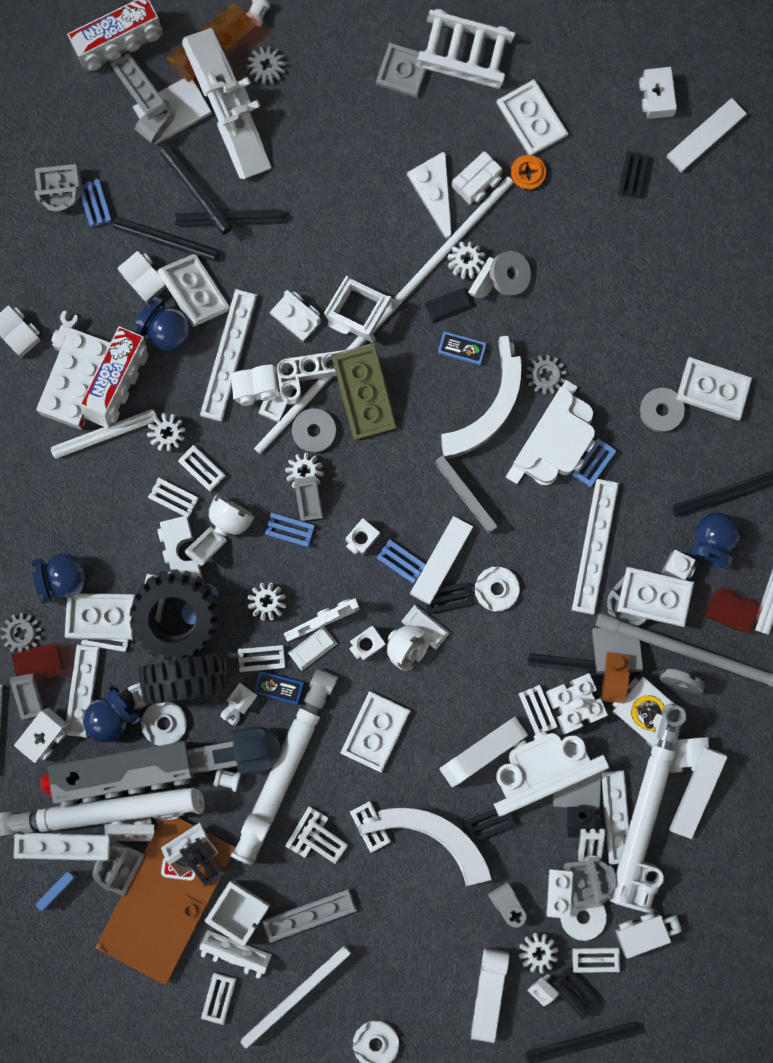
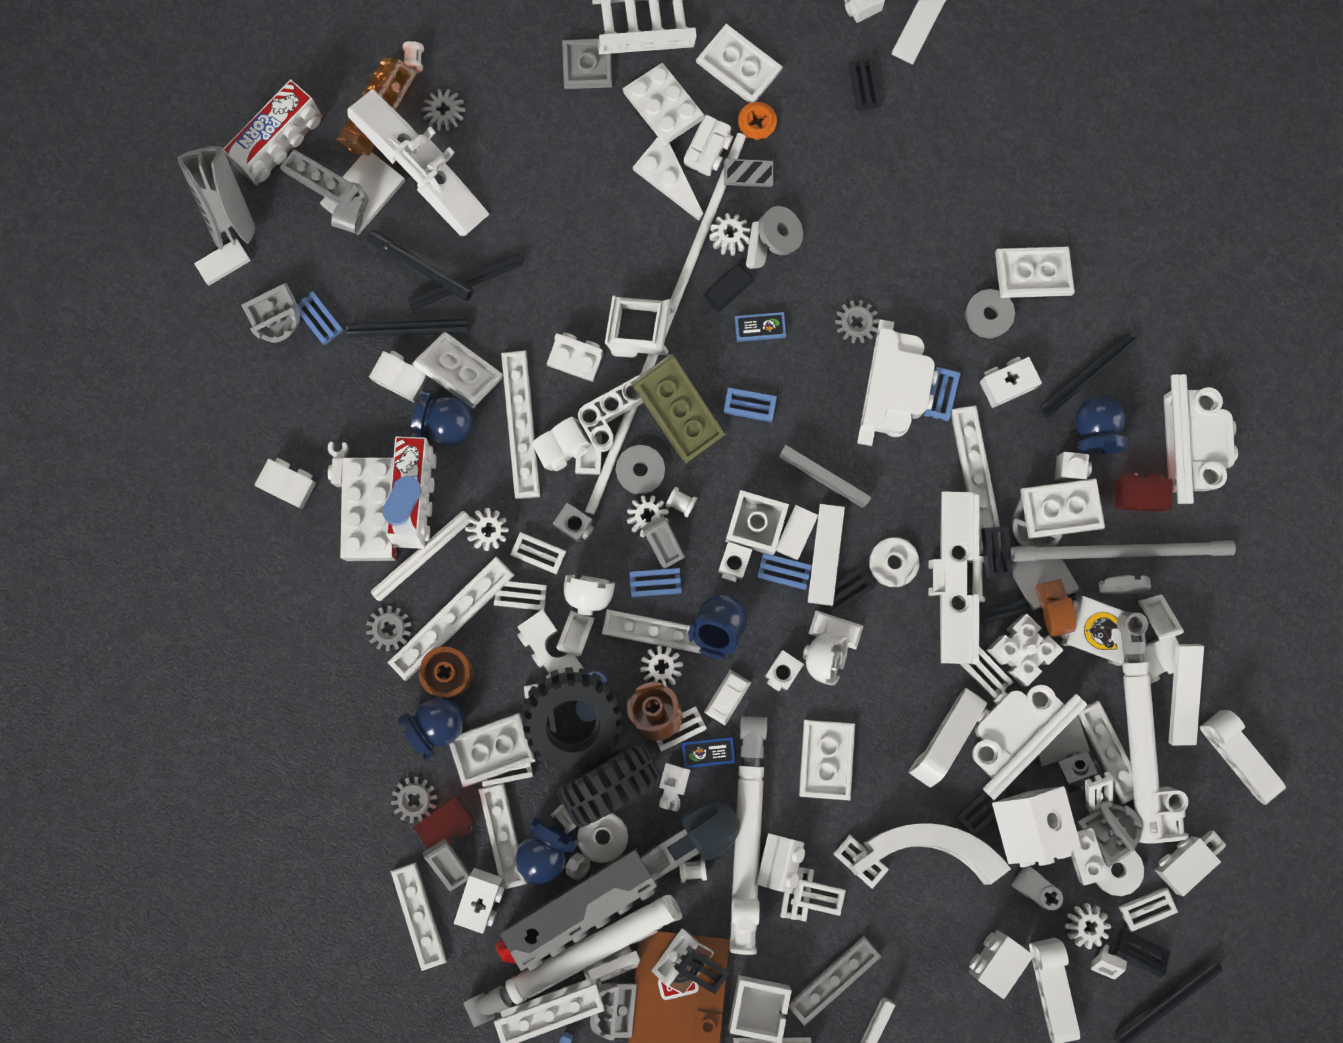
camera: 25 degrees left, 0 degrees up
(33, 126) = (222, 262): none -> white tile
(47, 478) = (385, 638): none -> light grey gear
(49, 70) = (217, 194): none -> light grey piece
(76, 531) = (432, 668): none -> dark orange brick
(103, 381) = (402, 500): none -> medium blue tile
(108, 495) = (451, 617): none -> white tile
(133, 739) = (577, 866): none -> white tile
(235, 446) = (569, 513): none -> light grey brick
(246, 636) = (641, 711): none -> dark orange brick
(272, 570) = (648, 630): none -> white tile
(301, 801) = (780, 863): none -> white brick
(324, 617) = (746, 642): white wing -> none
(326, 584) = (718, 626): none -> dark blue tile
(337, 470) = (681, 502): none -> white bush
(392, 511) = (757, 522): none -> white brick
(410, 401) = (748, 414): none -> medium blue tile
(424, 533) = (796, 532): none -> white tile
(450, 953) = (999, 963): none -> white brick
(453, 128) = (663, 103): none -> white plate
(484, 428) = (807, 414): white arch -> none
(502, 214) = (748, 173): none -> light grey tile
(526, 852) = (1037, 826): none -> white brick
(536, 620) = (958, 627): none -> white piece
(572, 628) = (987, 552): none -> black tile
(667, 479) = (1024, 379): none -> white brick
(703, 720) = (1161, 617): none -> white tile
(718, 838) = (1225, 735): none -> white beam

